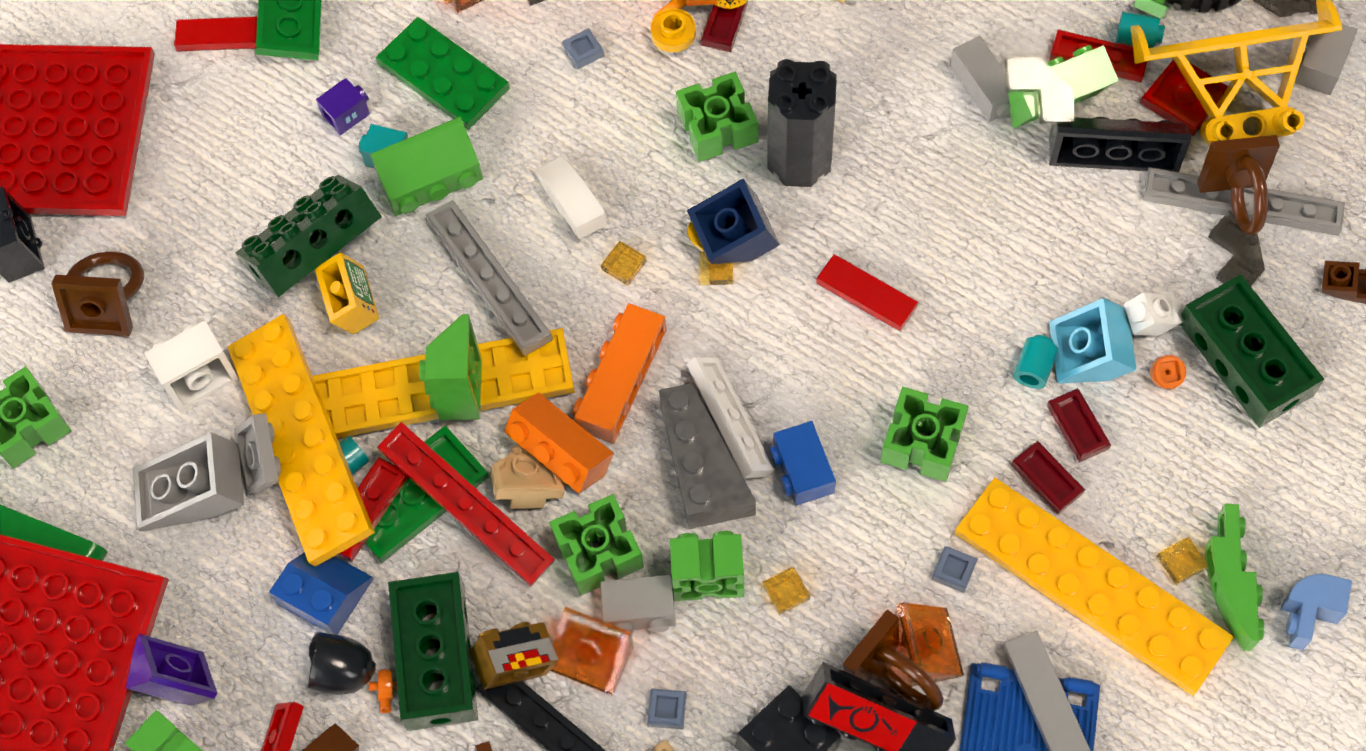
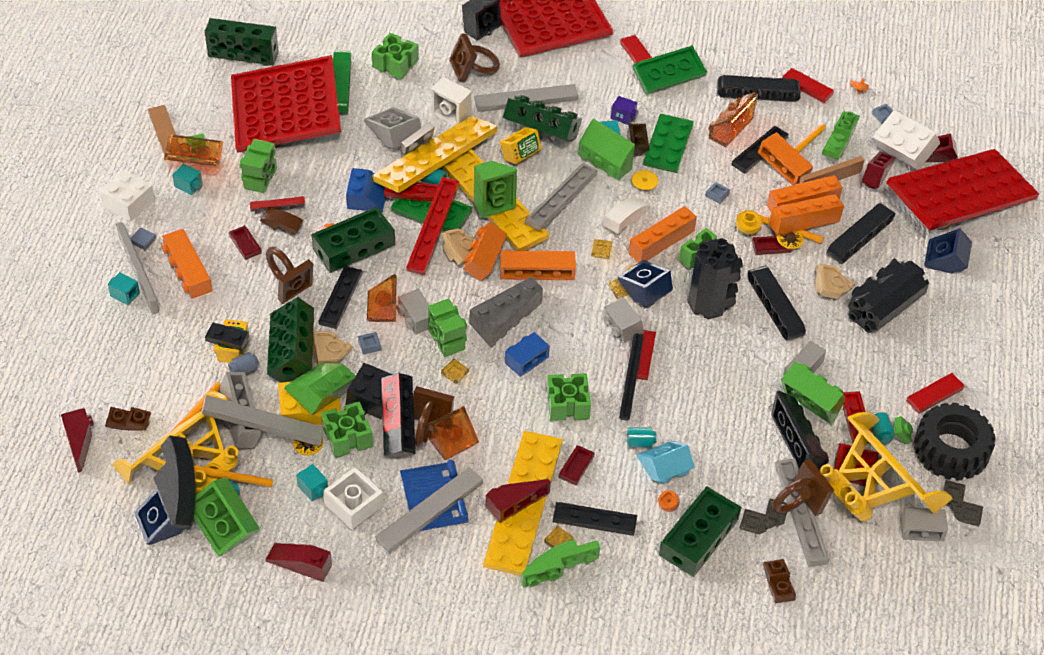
camera: 60 degrees right, 15 degrees down
(170, 672) = (299, 149): dark purple slope -> none
(230, 232) = (547, 94): none -> light grey tile
(338, 664) = (330, 206): black piece -> none
(414, 111) = (638, 135): none -> dark brown slope
(508, 139) = (644, 179): none -> yellow piece
(513, 654) = (365, 268): brick -> none
(603, 525) = (438, 281): bright green brick -> none
(644, 162) = (662, 234): none -> orange brick
(730, 417) = (537, 315): white plate -> none
(798, 290) = (623, 319): none -> light grey brick
(859, 61) = (776, 303): none -> black beam
(915, 325) = (631, 377): none -> black axle
(954, 569) = (502, 438): sand blue tile -> none
(1054, 94) = (798, 380): clear smoke tile -> none
(1078, 425) = (615, 470): dark red tile -> none
(1106, 603) = (514, 497): none -> dark red slope
(1153, 313) = (691, 479): white brick -> none
(1159, 492) = (595, 518): none -> black tile
(1314, 598) = (563, 600): medium blue brick -> none

